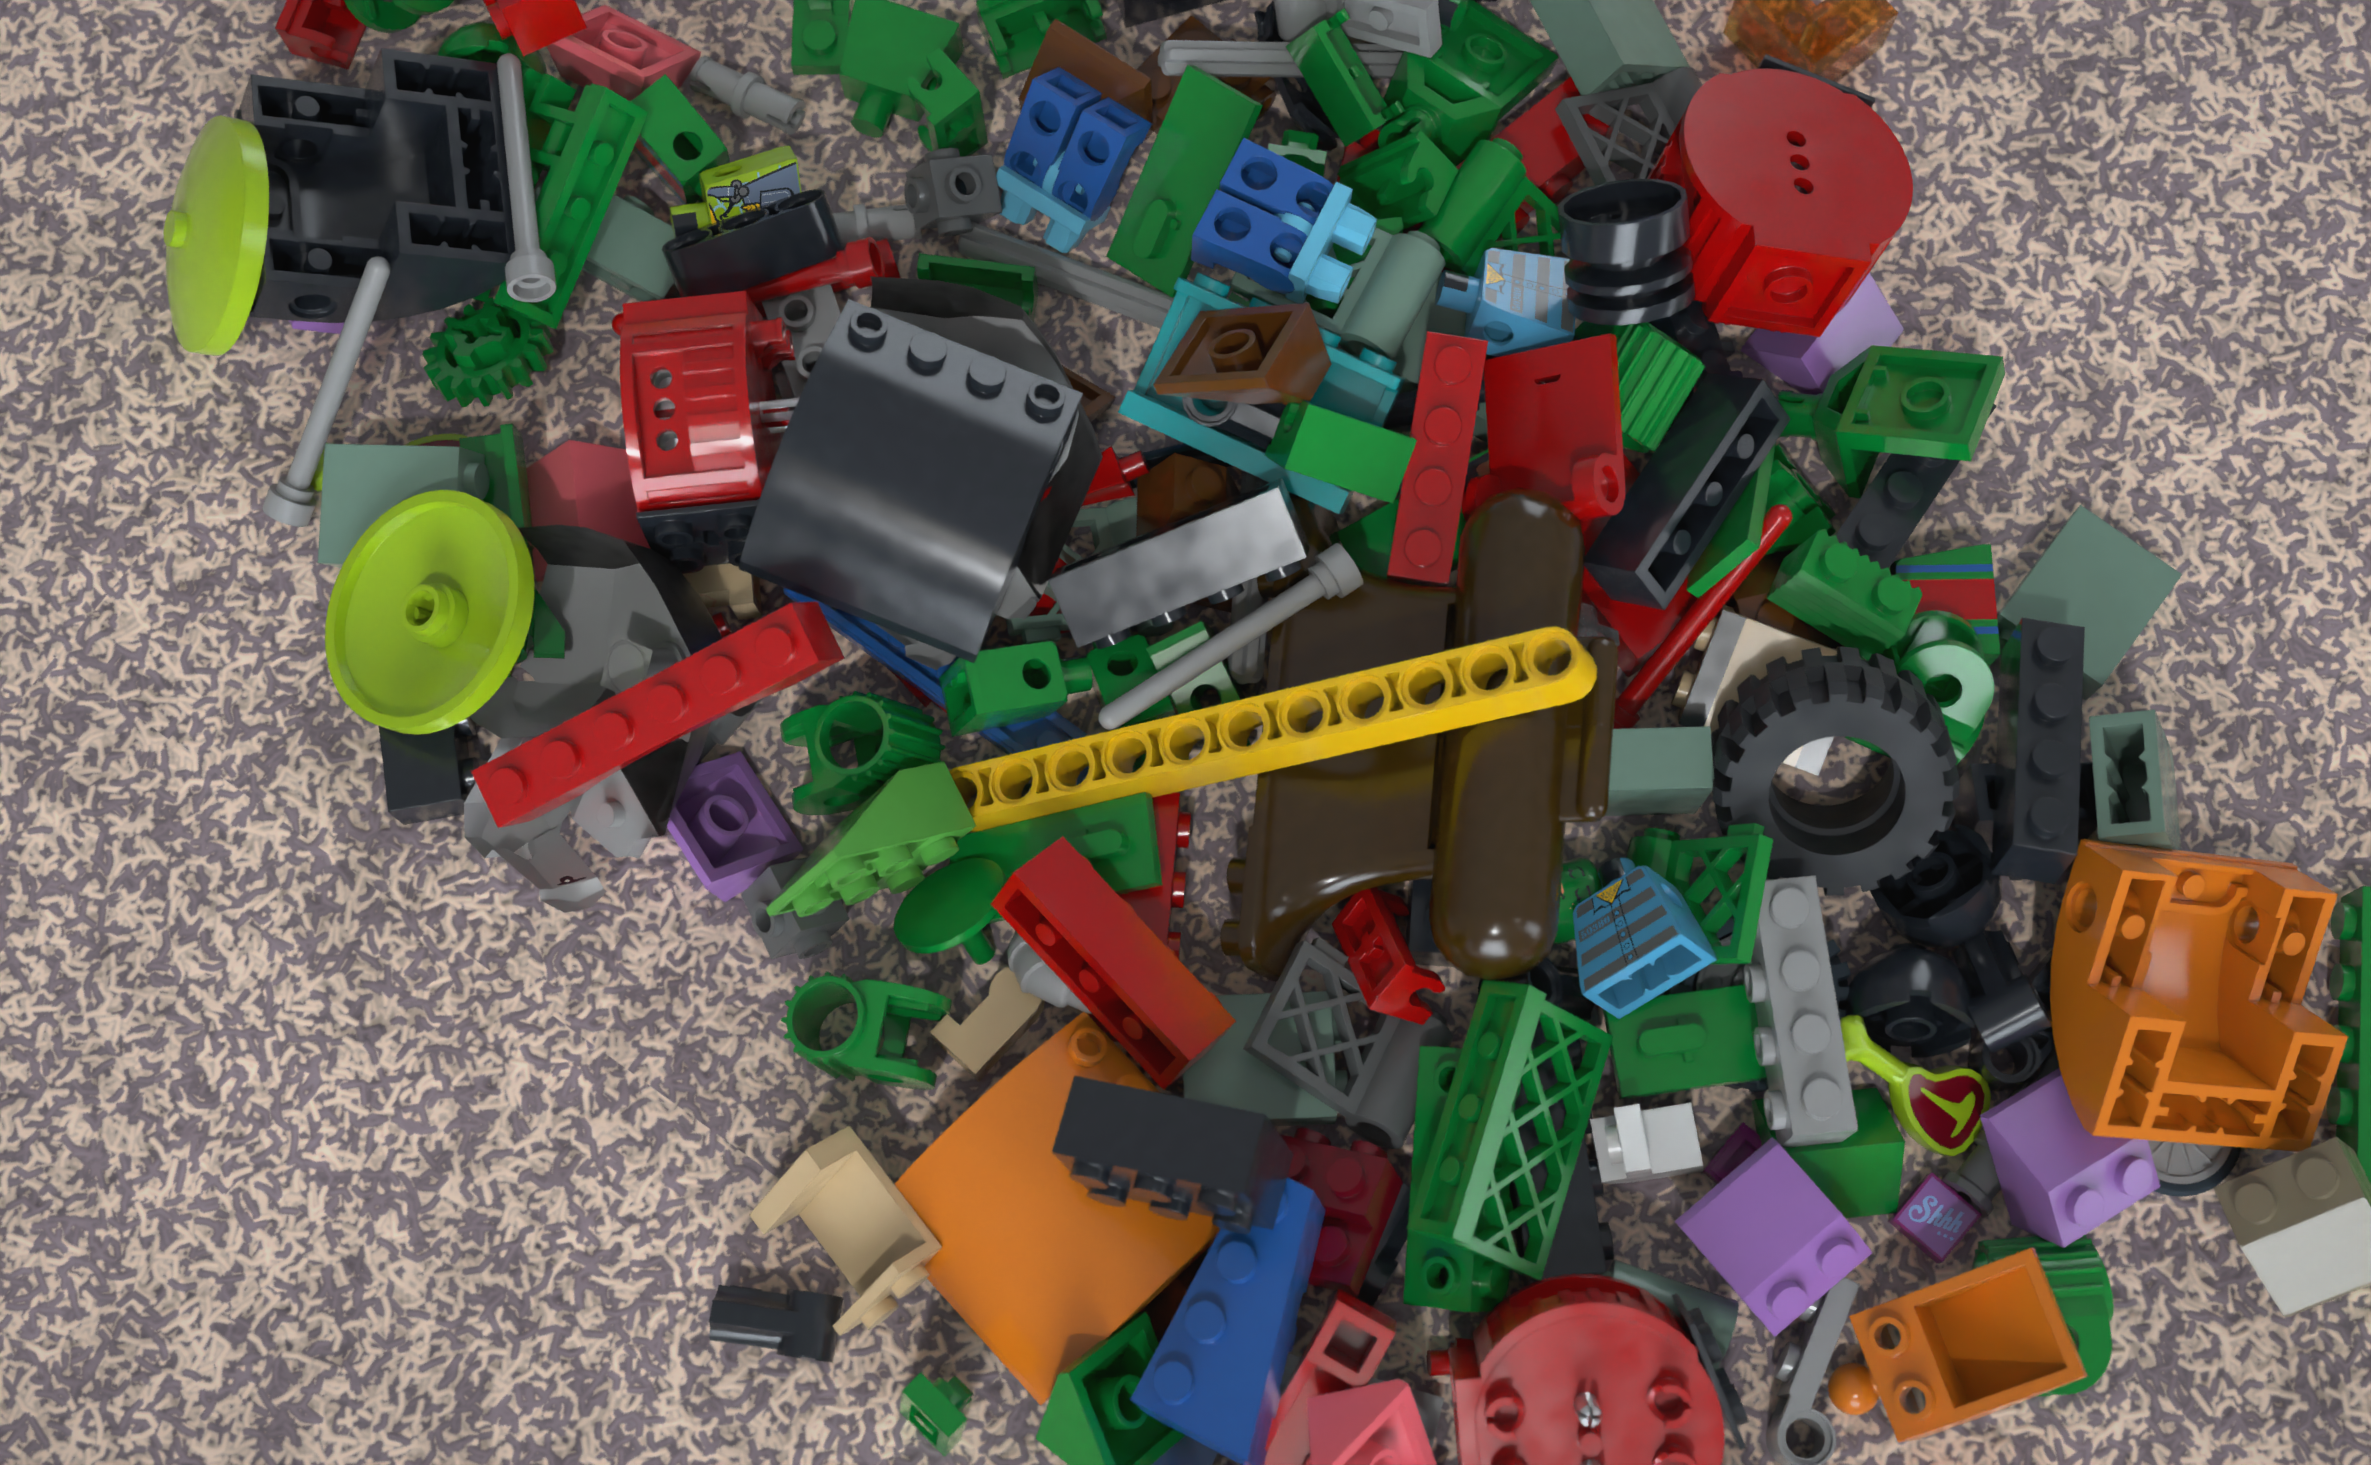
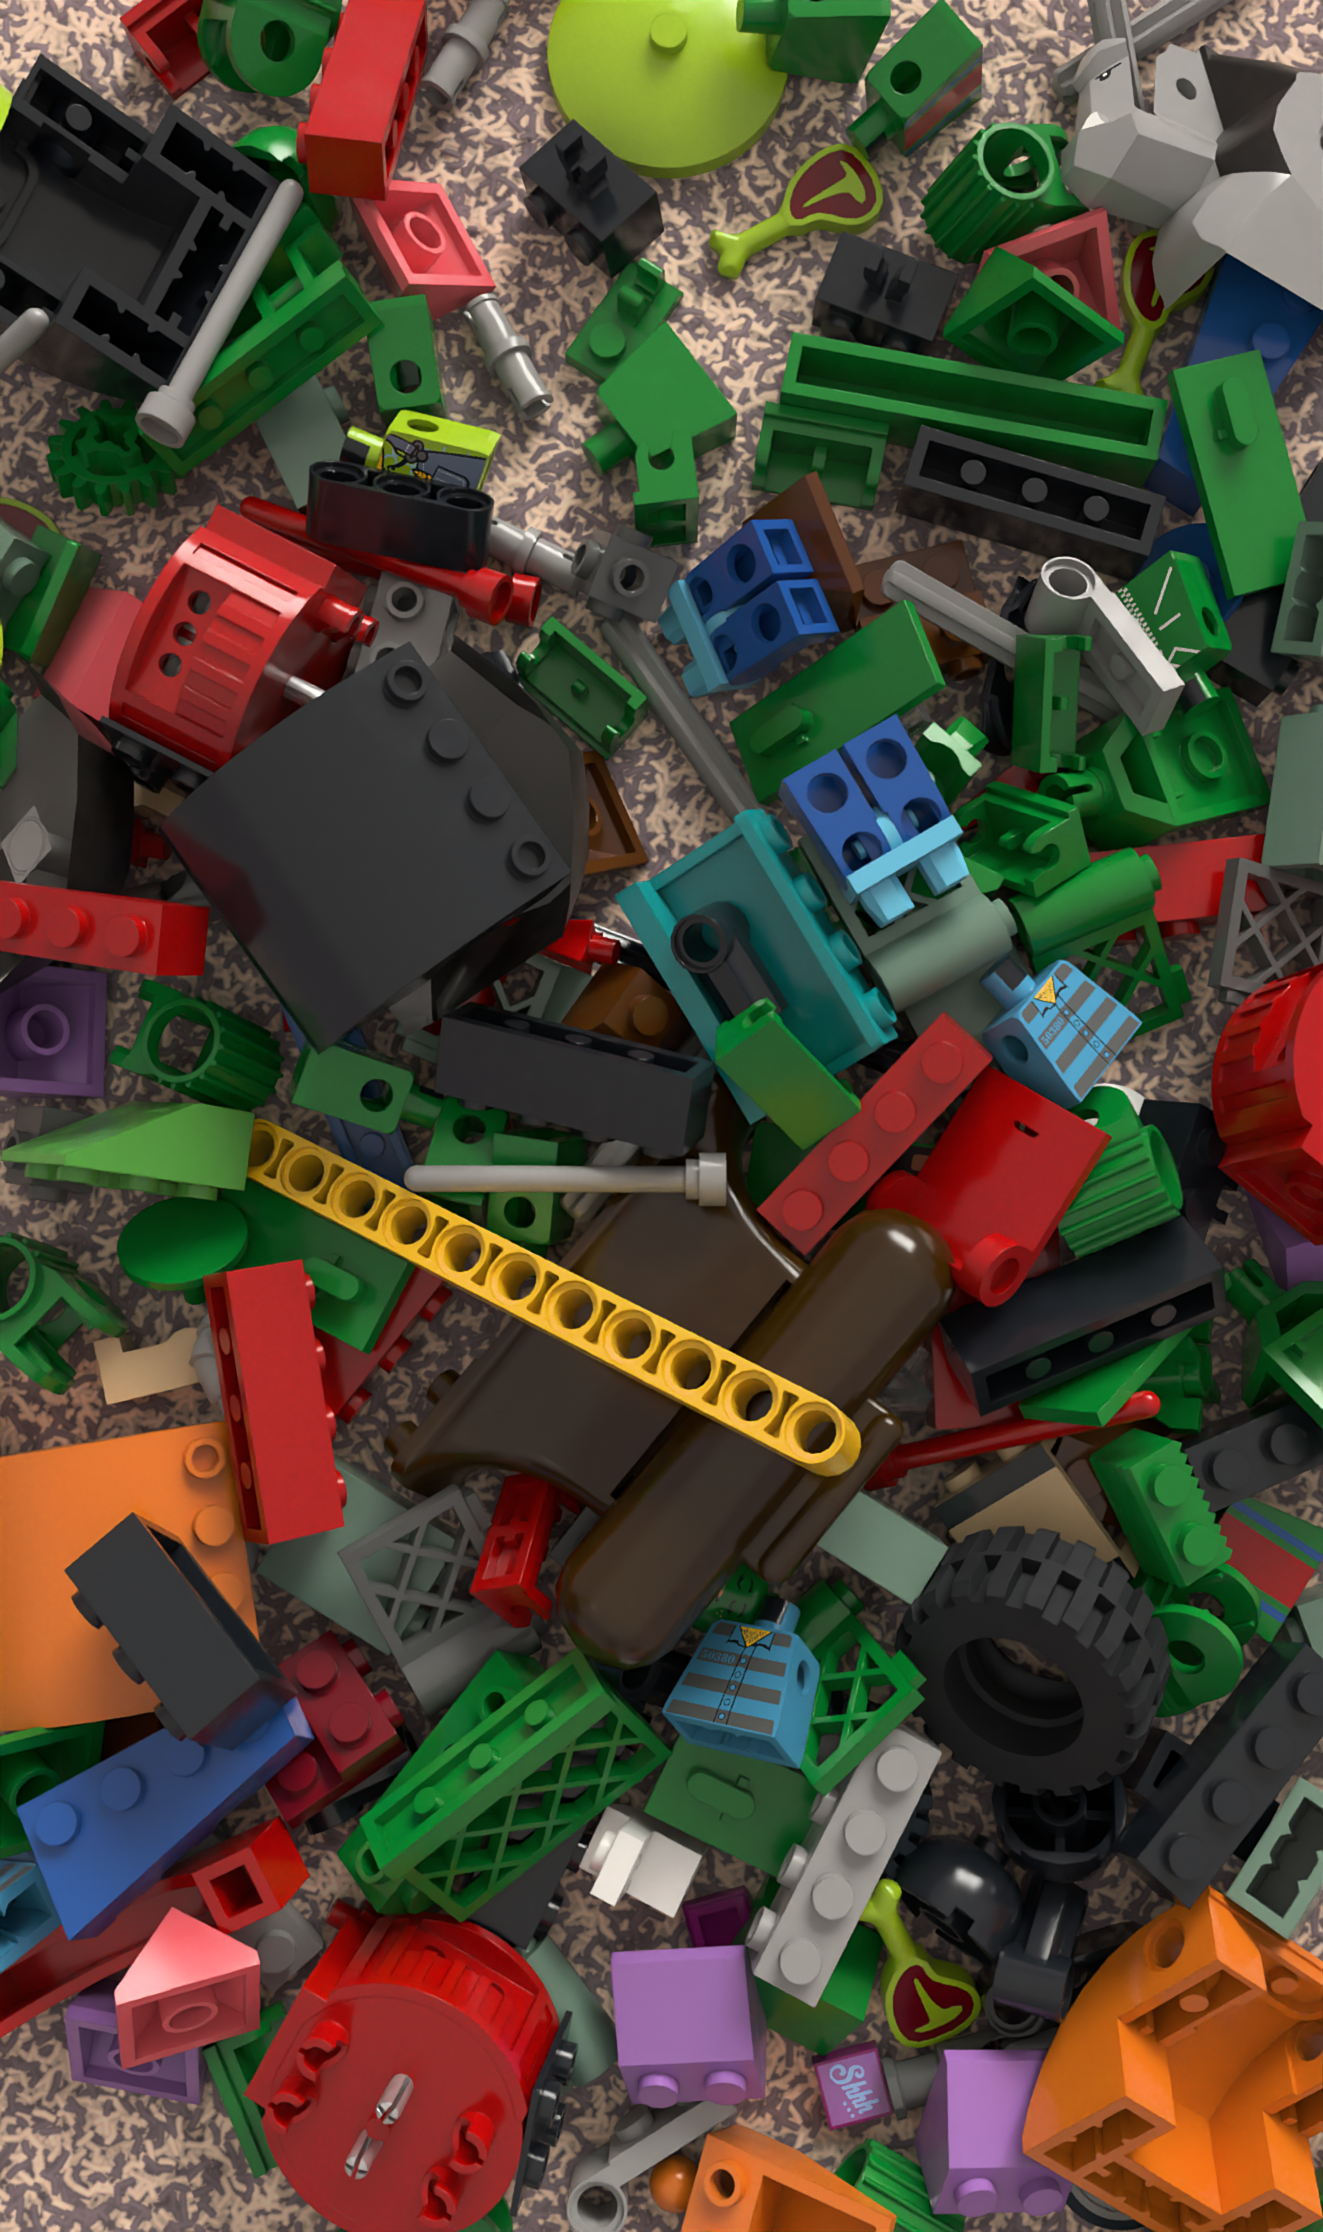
camera: 35 degrees right, 10 degrees up
(1248, 356) = (751, 933): reddish brown slope -> none
(1627, 251) = (1181, 1061): black wheel -> none

